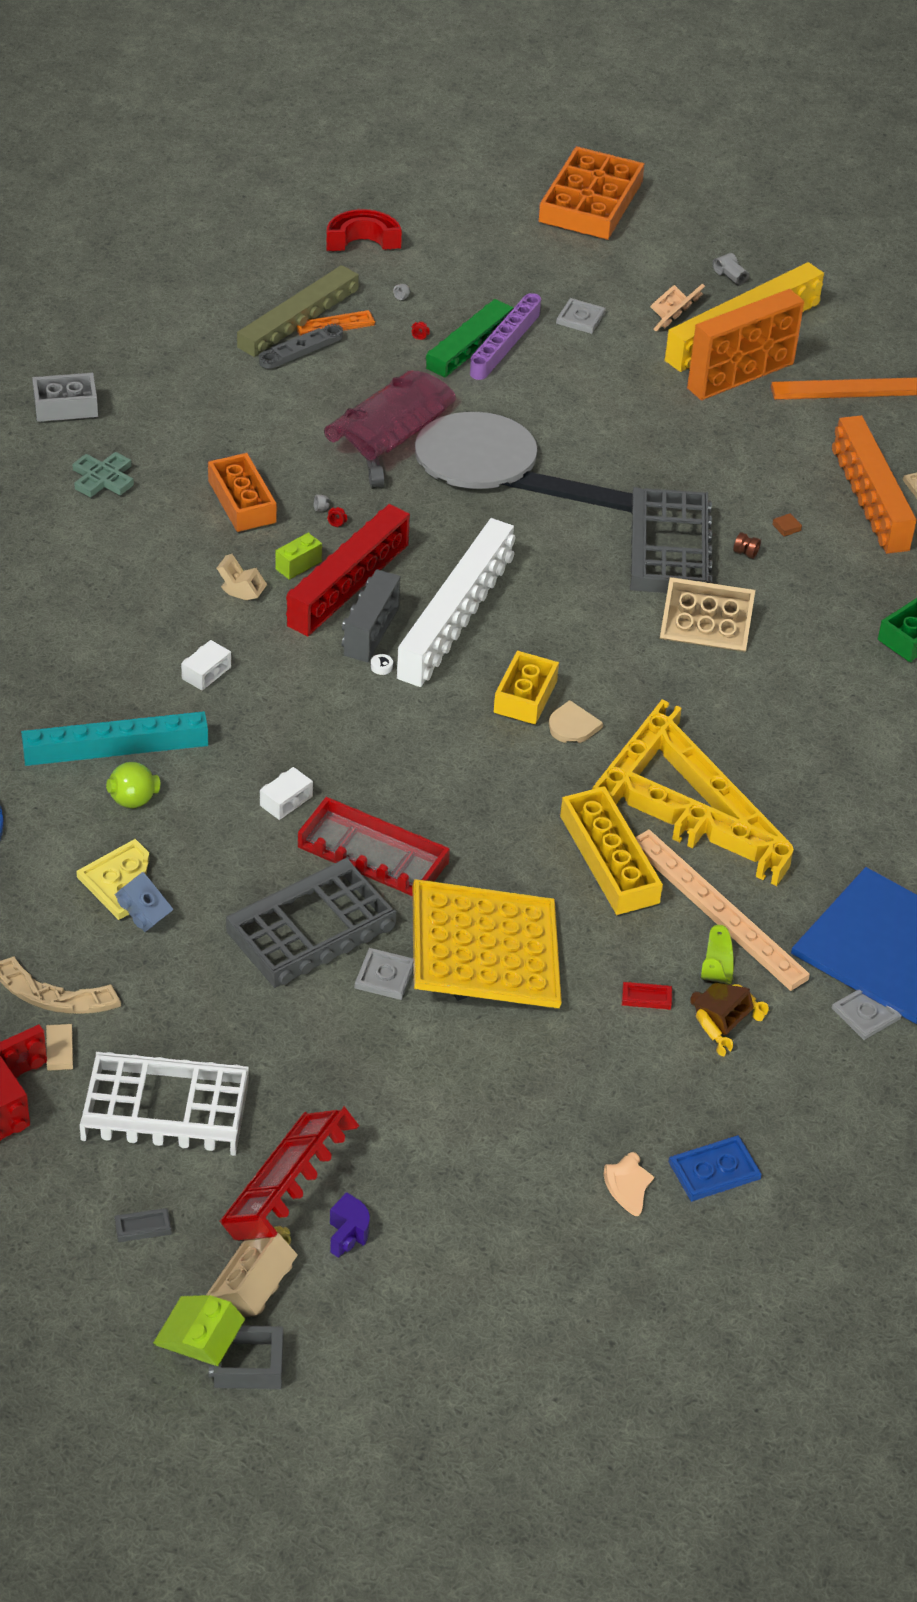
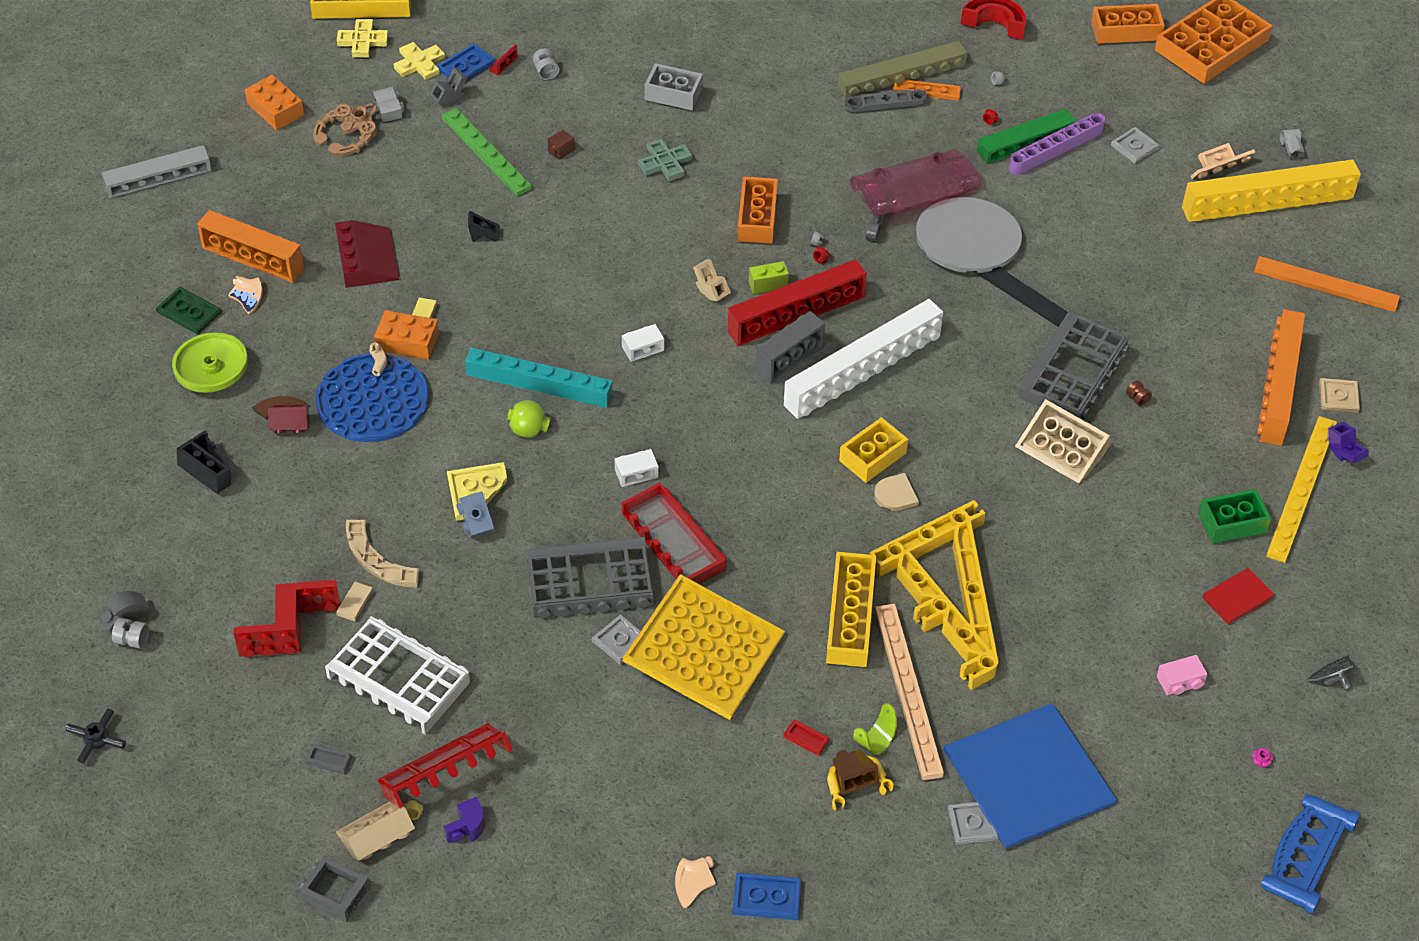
camera: 30 degrees right, 5 degrees up
(201, 1328) = (310, 854): lime slope -> none
(381, 664) = (777, 389): white tile -> none
(499, 202) = (1127, 23): none -> orange brick
(745, 344) = (1245, 216): orange brick -> none
(787, 524) = (1188, 386): dark orange tile -> none

